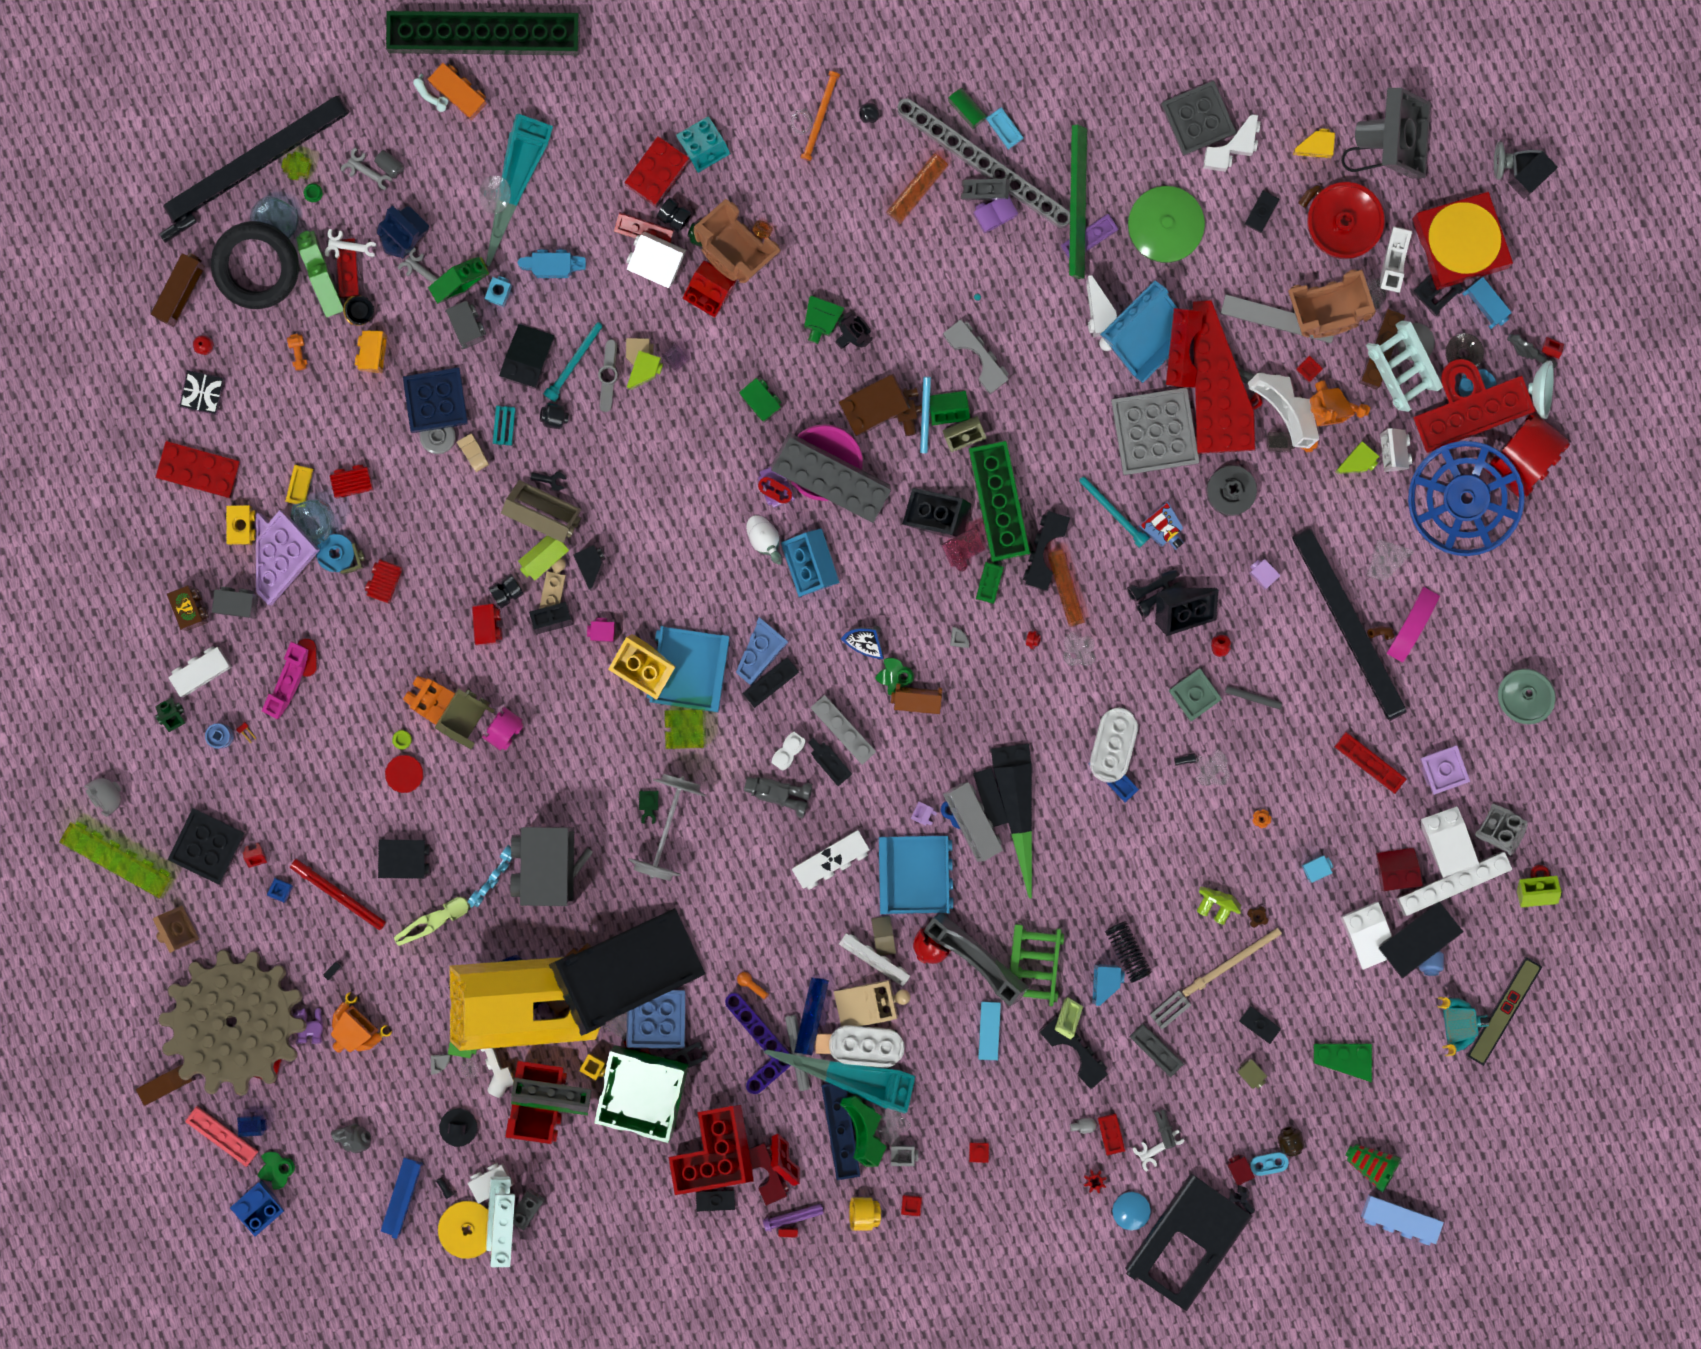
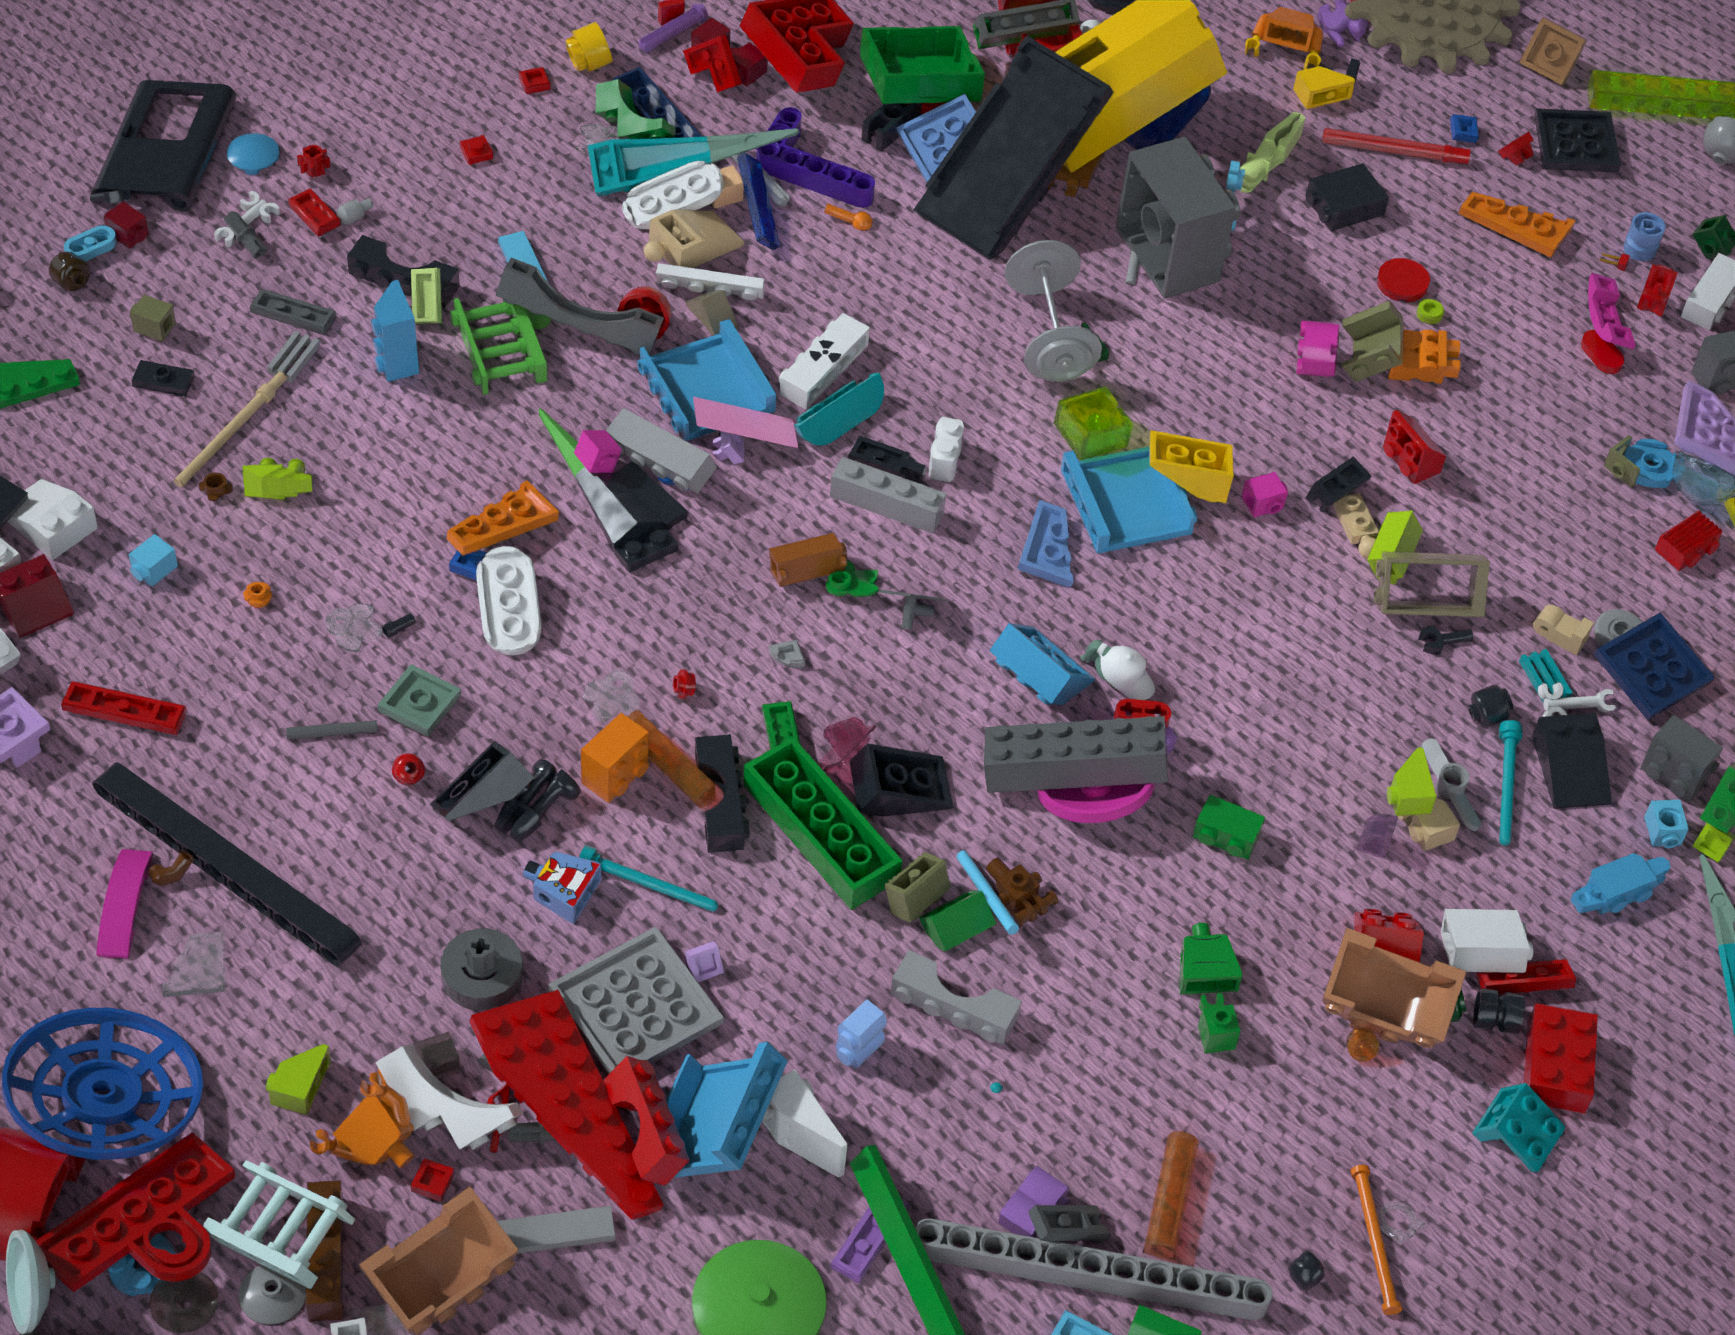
camera: 150 degrees right, 35 degrees down
(242, 684) = (1657, 289): none -> red hips
(290, 782) = (1515, 222): none -> orange wing
(361, 969) = (1322, 86): none -> yellow slope
(383, 581) = (1571, 453): red brick -> none
(506, 591) = (1415, 491): black wheel -> none
(511, 402) = (1555, 704): none -> white bar
(590, 564) = (1330, 548): black slope -> none
(593, 1066) = (995, 71): yellow brick -> none
(771, 682) = (1012, 517): black plate -> none
(778, 793) = (928, 406): dark grey piece -> none
(838, 275) = (1218, 1025): none -> green brick
(841, 813) = (841, 411): none -> teal brick
(854, 331) = (1150, 957): black tile -> none
(874, 405) = (1069, 867): reddish brown slope -> none
(903, 1155) = (568, 114): light grey window -> none
(908, 823) = (745, 422): none -> bright pink sticker
(1012, 835) = (597, 451): none -> dark pink brick
(1043, 350) = (860, 1034): none -> light blue brick
(1086, 811) = (510, 517): none -> orange wing
(1101, 595) = (615, 758): none -> orange brick
(1106, 440) = (704, 961): none -> lavender tile
(1143, 972) = (355, 378): black piece -> none
(1263, 573) = (383, 879): lavender brick -> none
(1394, 450) = (244, 1103): white slope -> none

